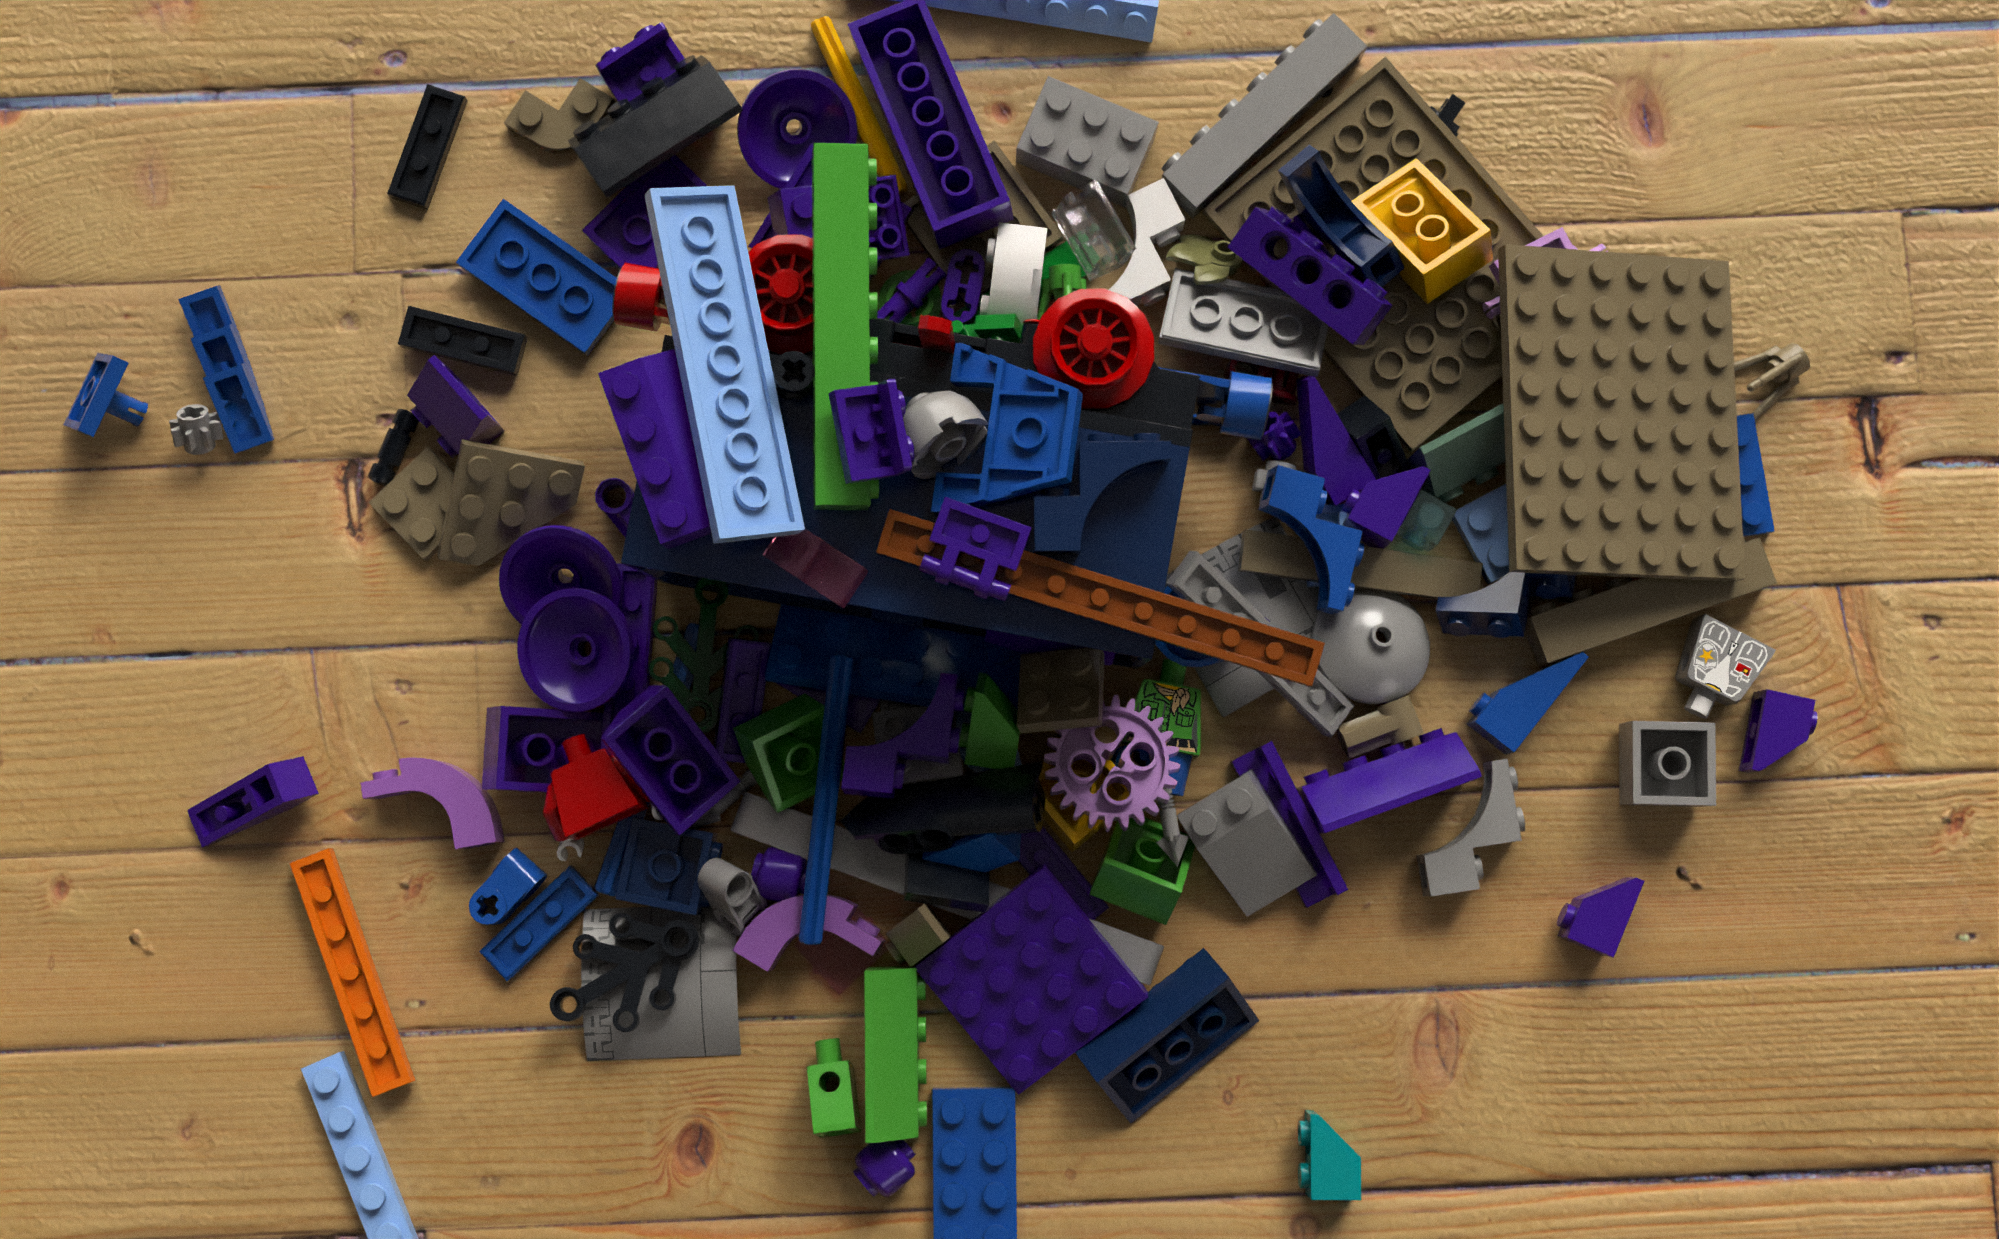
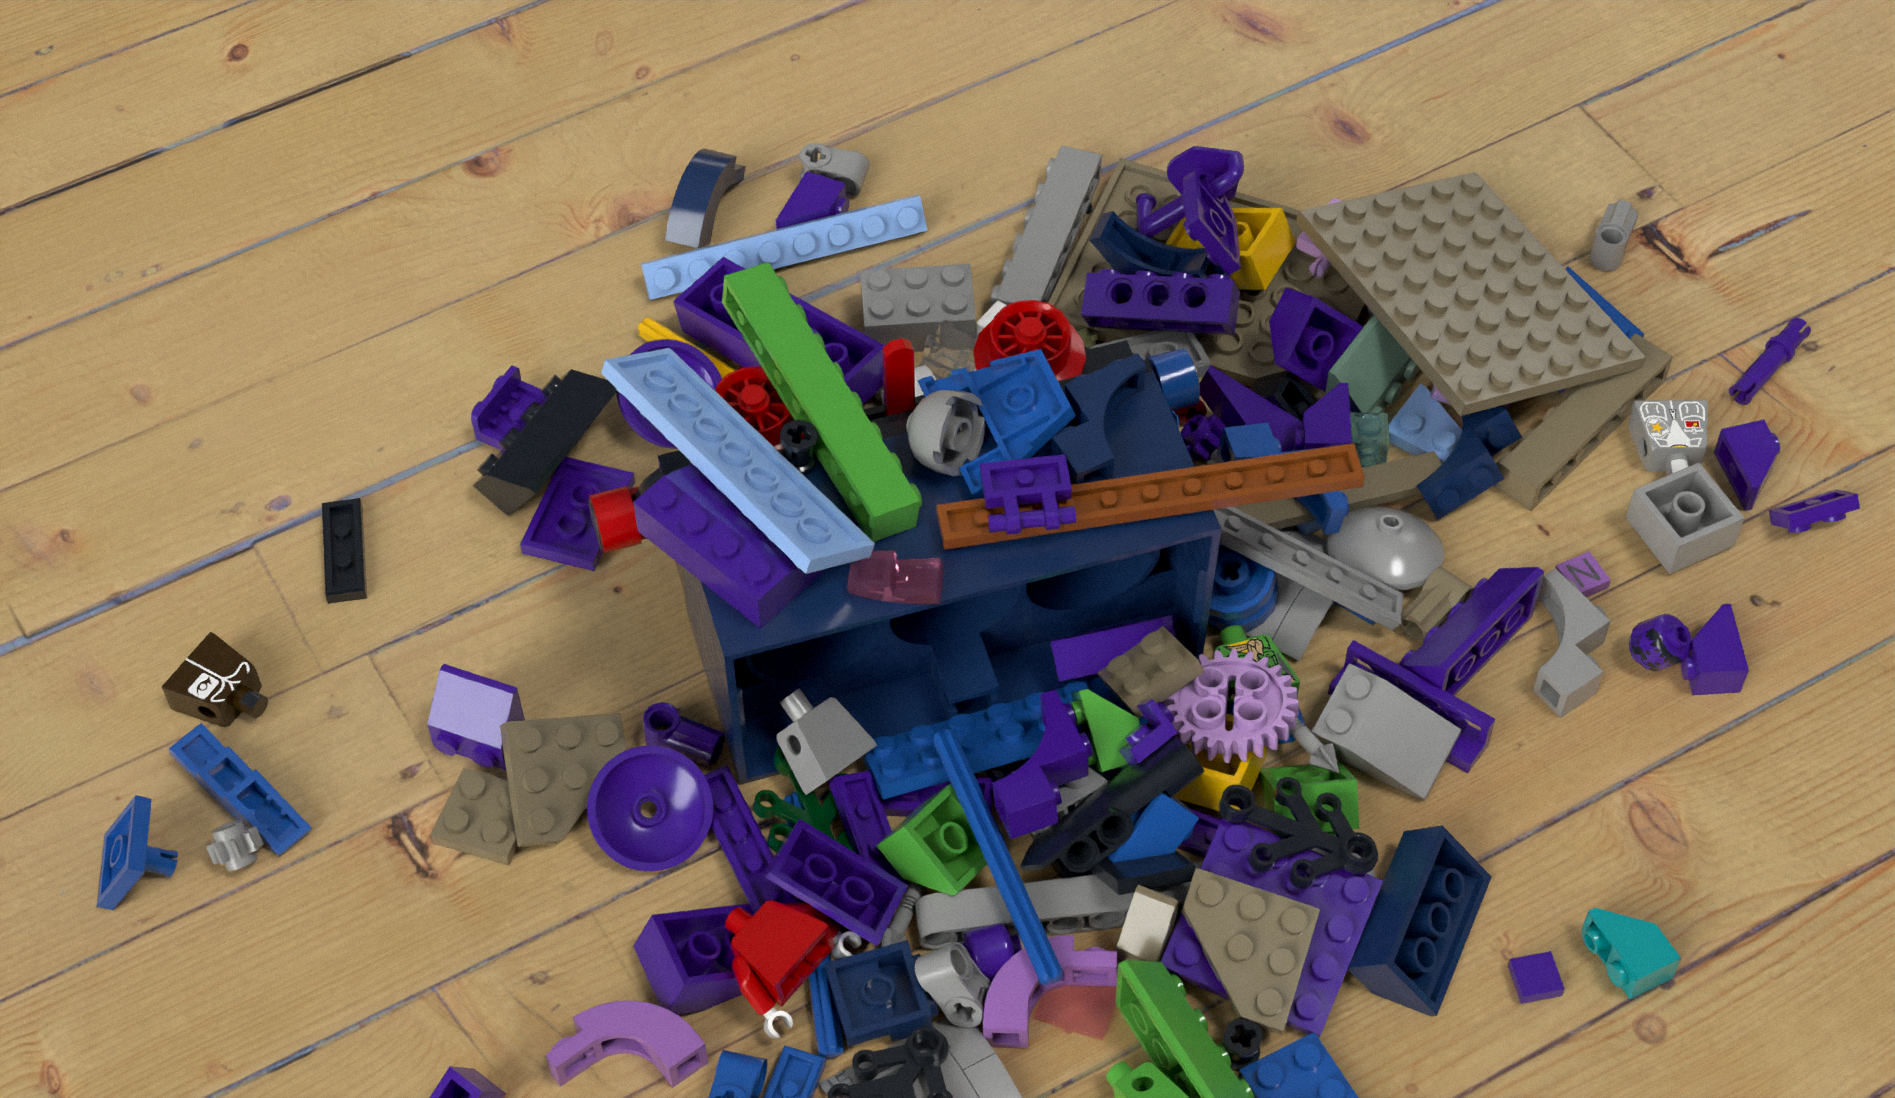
camera: 25 degrees left, 30 degrees down
(250, 245) = (215, 684): none -> dark brown torso
(393, 447) = (431, 784): black axle -> none
(462, 340) = (417, 679): black plate -> none
(542, 276) = (504, 595): blue plate -> none
(552, 127) = (449, 490): dark tan plate -> none
(554, 652) = (677, 832): dark purple dish -> none
(737, 611) = (820, 740): none -> light grey torso
(871, 431) = (894, 437): dark purple bracket -> none
(934, 1077) = (1249, 1035): none -> black bush
(997, 998) = (1251, 943): none -> dark tan plate
(1016, 766) = (1146, 739): none -> dark purple bracket
(1100, 927) = (1303, 833): none -> black plant
(1235, 1135) = (1536, 977): none -> dark purple tile
(1411, 190) = (1206, 183): none -> dark purple plate
(1430, 393) = (1309, 336): none -> dark purple slope
(1514, 710) = (1537, 529): blue slope -> none
(1537, 765) = (1585, 574): none -> medium lavender tile
(1555, 882) = (1660, 642): none -> dark purple head
(1782, 366) = (1568, 228): dark tan plant -> none
(1799, 812) = (1826, 507): none -> dark purple plate
(1823, 399) = (1613, 236): none -> light grey piece
(1888, 620) = (1777, 351): none -> dark purple pin

